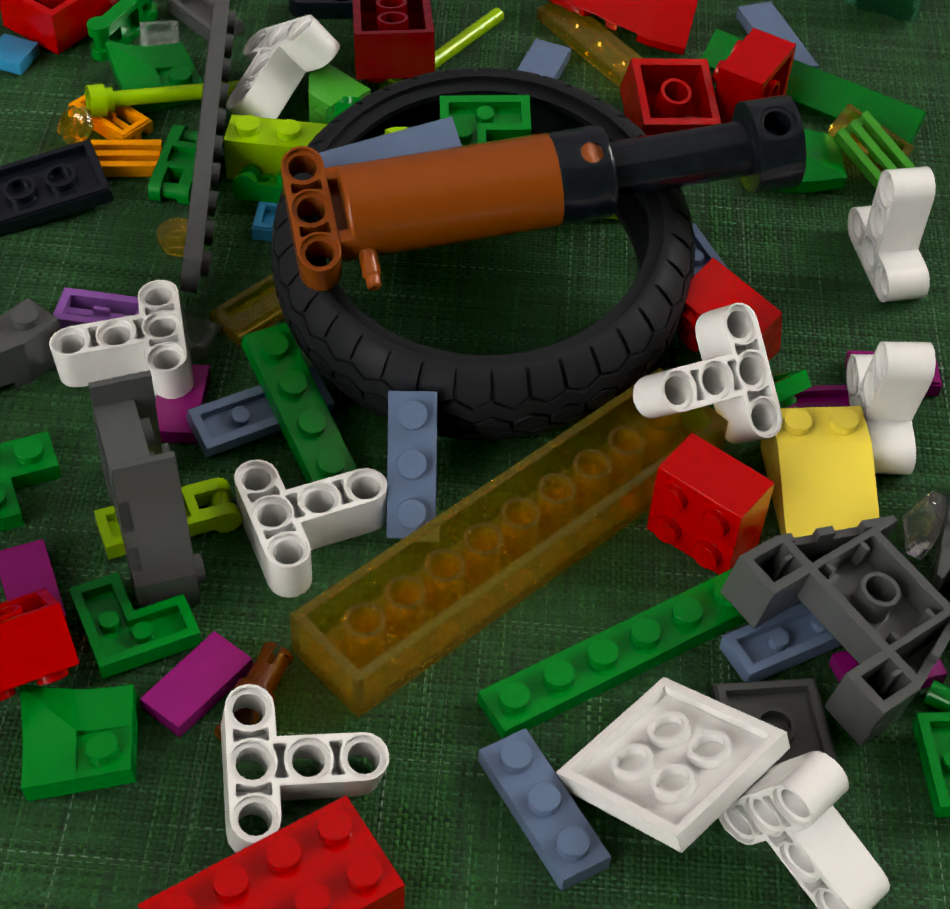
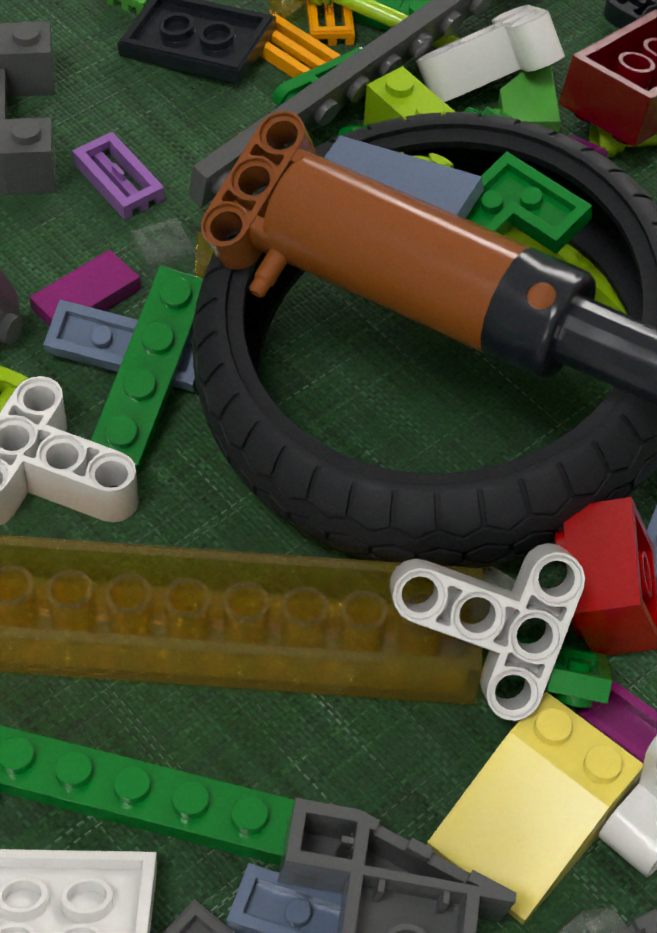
camera: 45 degrees right, 5 degrees up
(130, 345) = (101, 224): white beam -> none
(411, 461) = (167, 478): sand blue plate -> none
(708, 504) = (373, 732): red brick -> none

